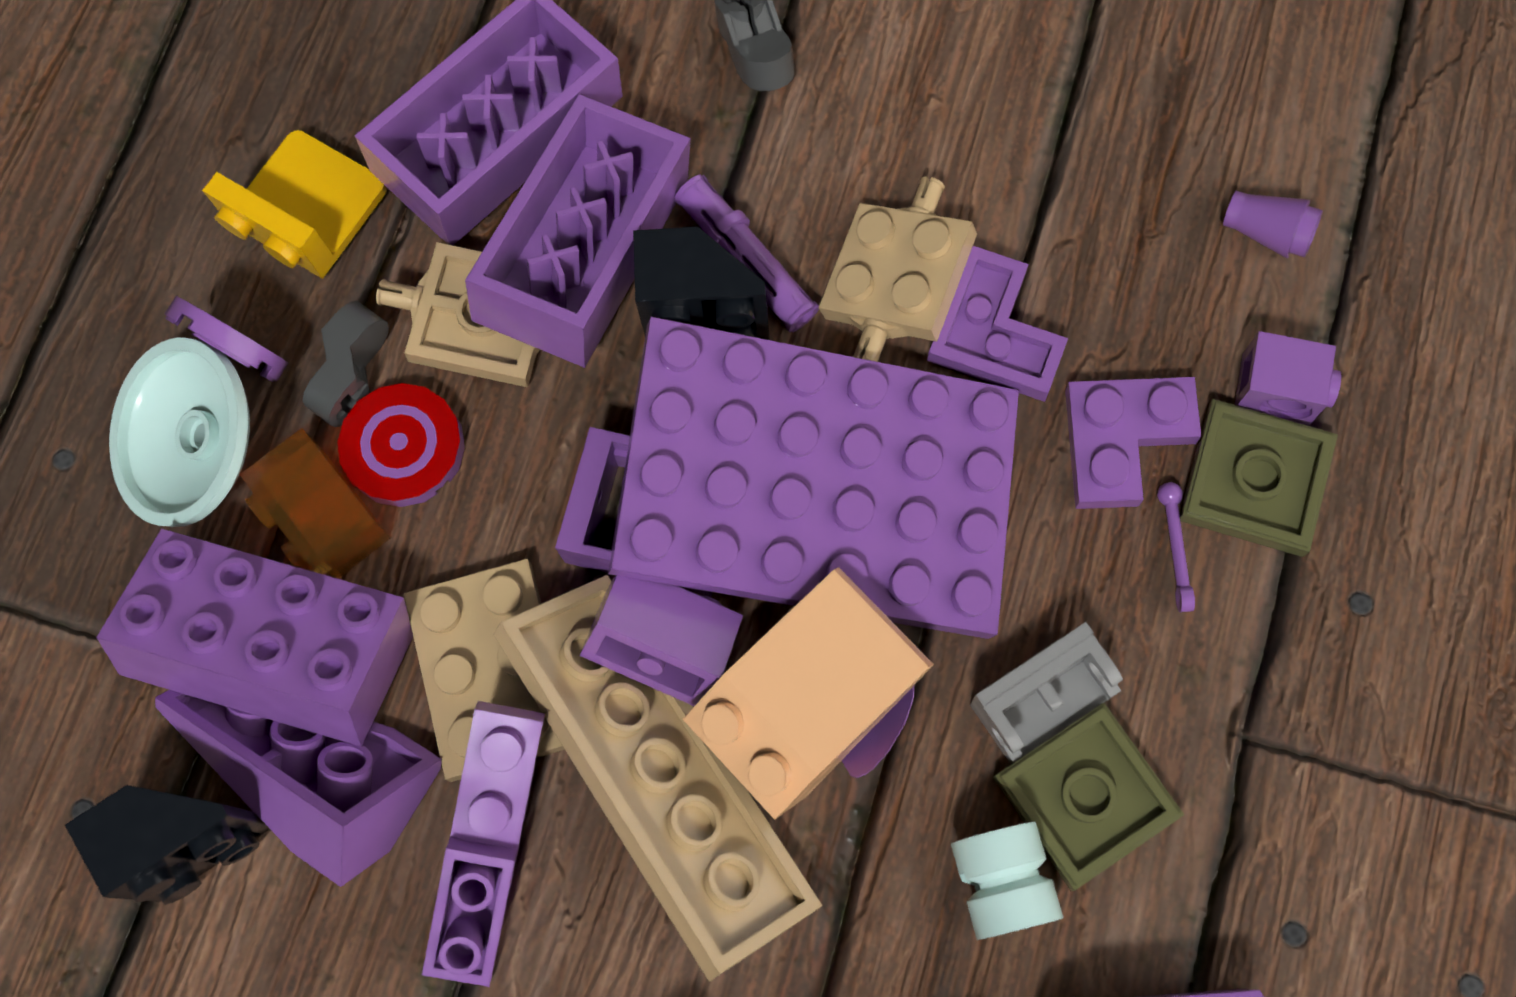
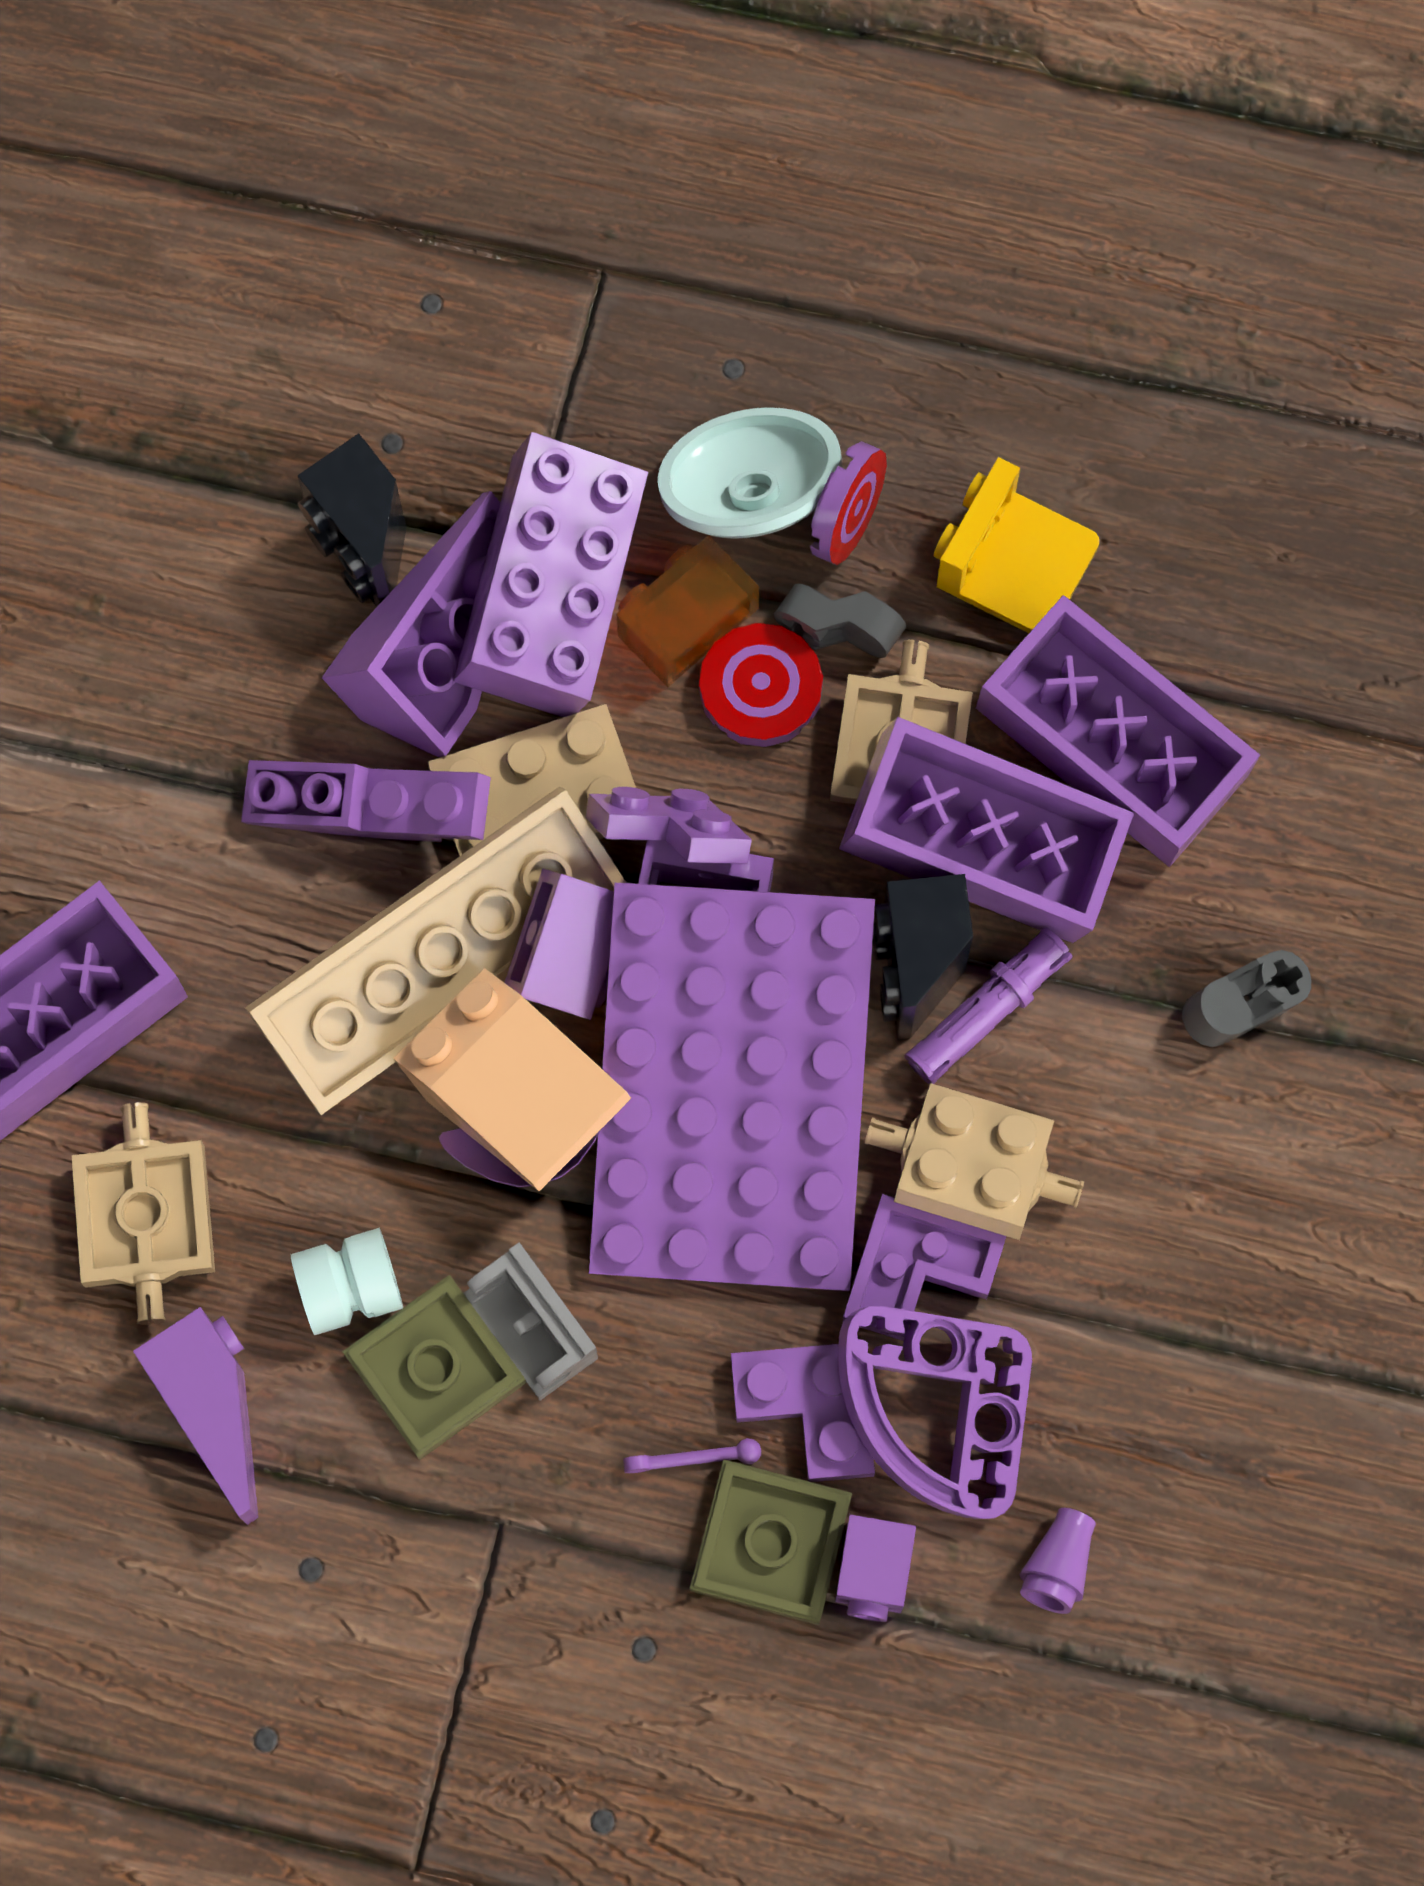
camera: 80 degrees right, 0 degrees up
(537, 520) = (684, 820): none -> medium lavender plate
(1100, 286) = (965, 1366): none -> medium lavender beam

